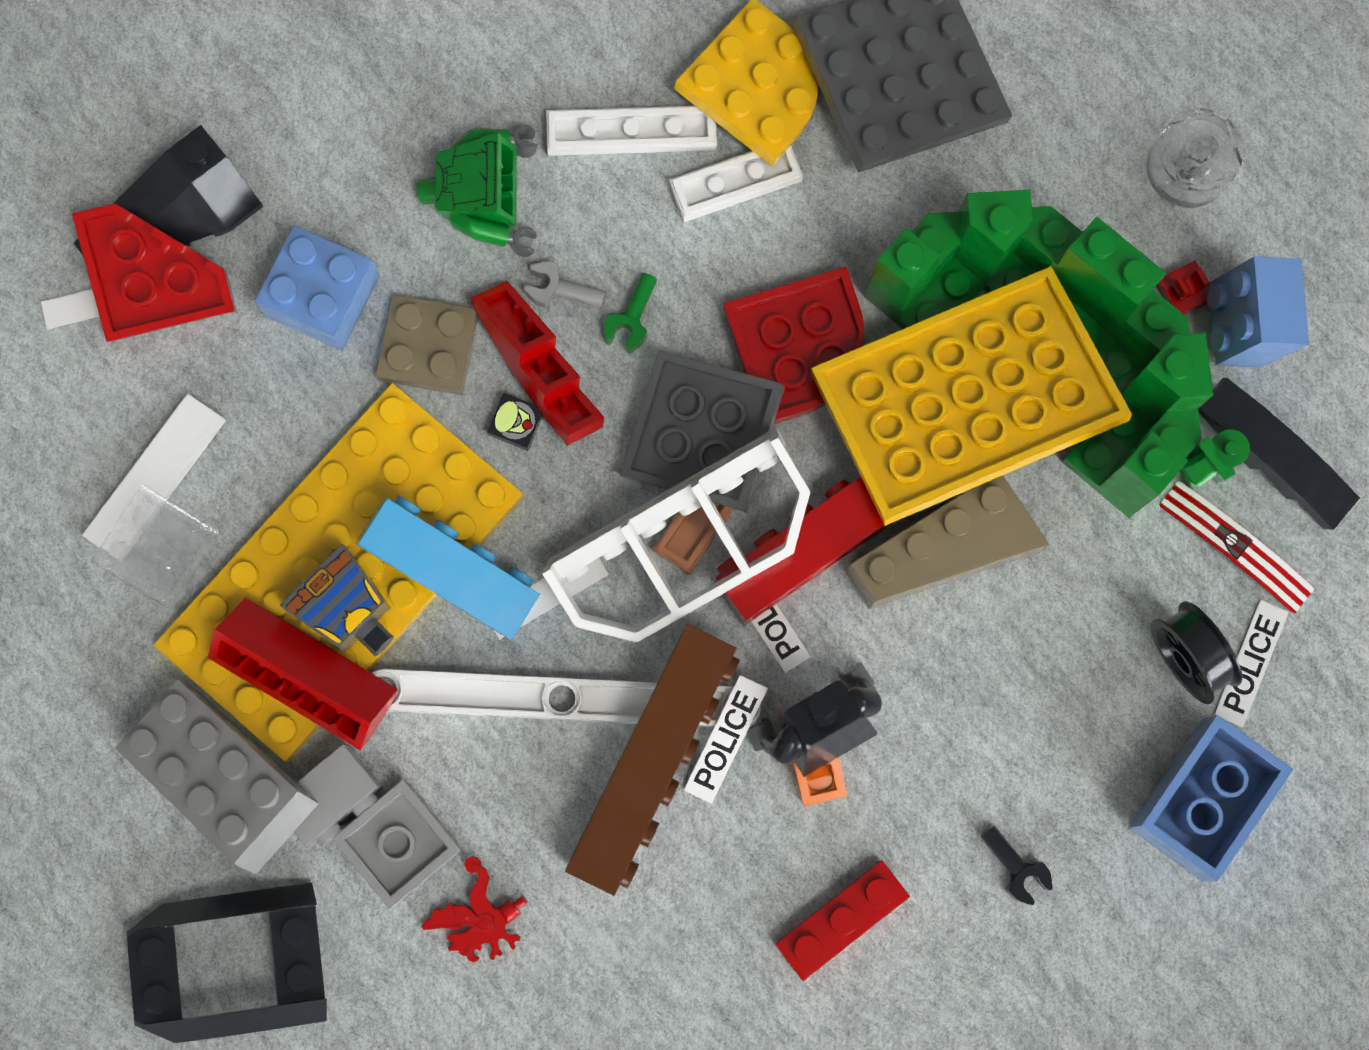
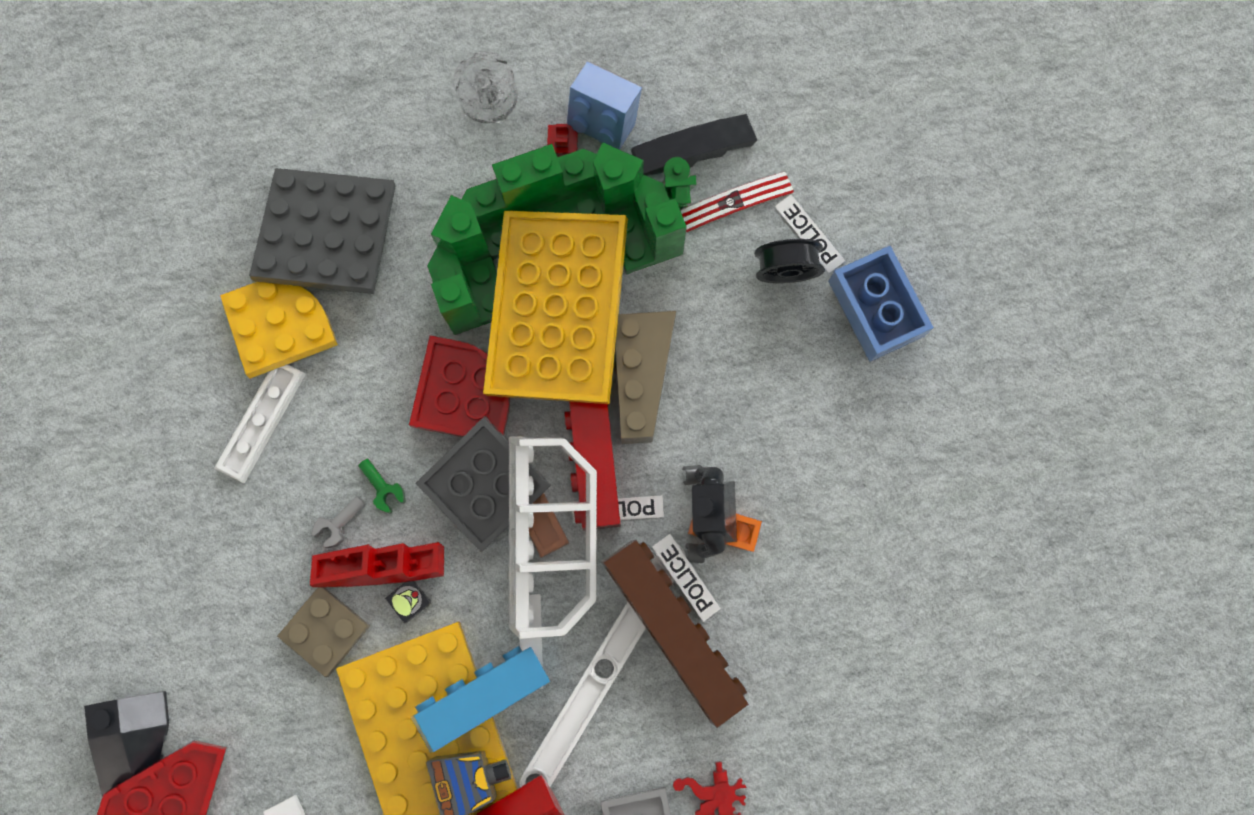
camera: 55 degrees left, 0 degrees up
(317, 288) = (243, 684): medium blue brick -> none
(479, 185) = (237, 539): green torso -> none
(732, 183) = (333, 376): white tile -> none
(842, 920) = (835, 567): red plate -> none
(1017, 867) = (860, 441): black bar -> none

